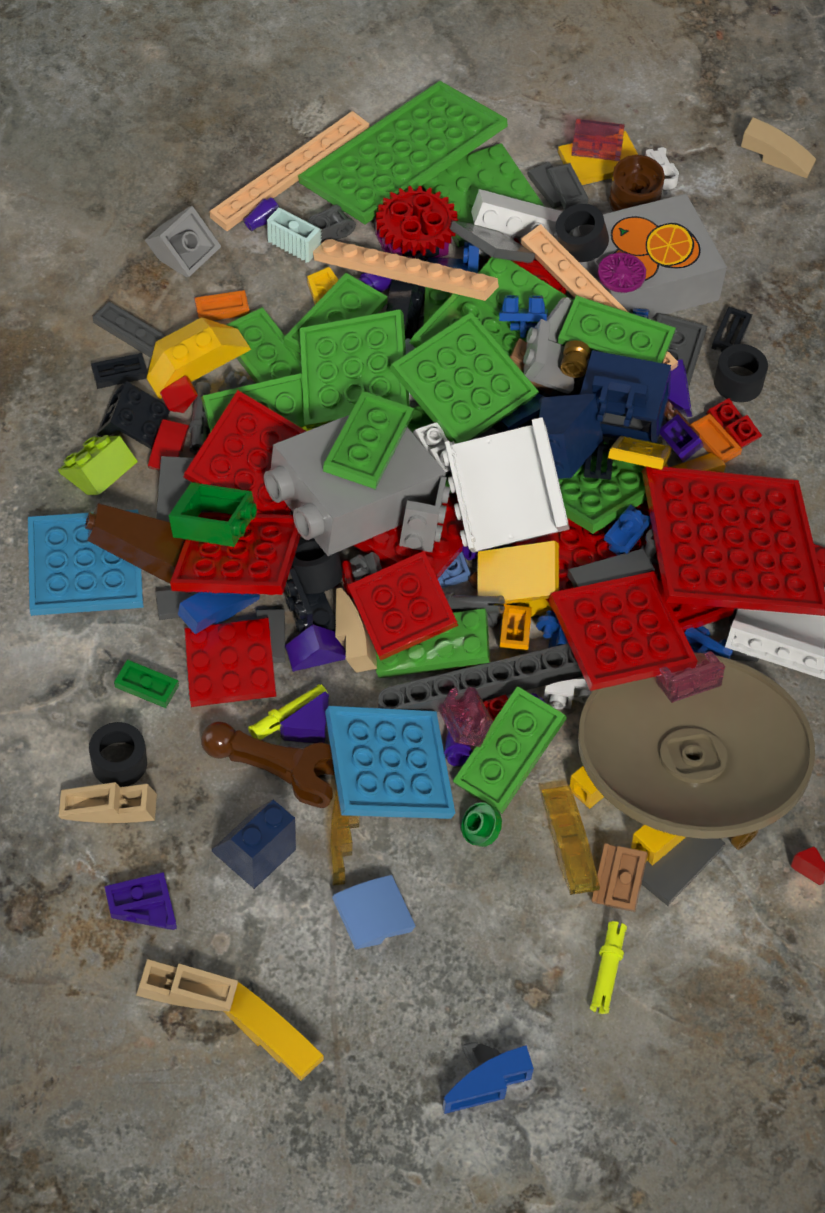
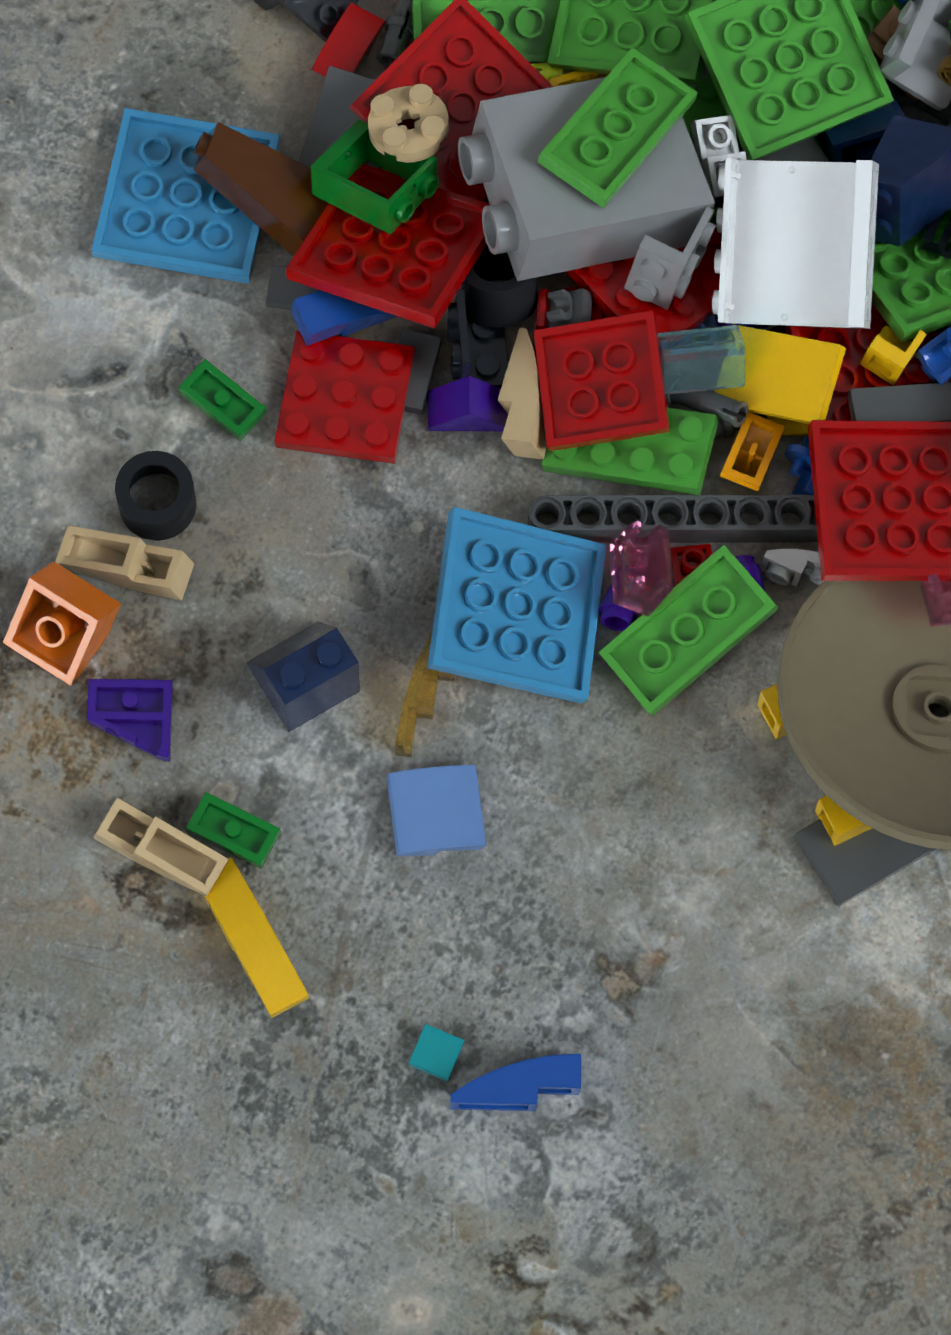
camera: 15 degrees right, 15 degrees up
(73, 854) = (61, 622): none -> orange slope
(98, 464) = (242, 50): lime slope -> none
(226, 462) = (404, 103): none -> tan plate
(235, 962) = (233, 830): none -> green plate
(272, 722) = (388, 498): neon yellow pin -> none
(293, 765) = (389, 574): reddish brown piece -> none
(307, 723) = (426, 514): dark purple slope -> none
(423, 1076) = (436, 1052): none -> teal tile
(466, 576) = (702, 359): none -> clear light blue panel
(478, 1053) = (520, 1044): dark grey tile -> none
(481, 824) = (617, 726): green plate -> none
(570, 840) = (732, 780): clear yellow slope -> none
(587, 545) = (889, 356): none -> yellow panel
(610, 955) = (727, 974): neon yellow pin -> none
(620, 877) = (783, 852): medium nougat plate -> none

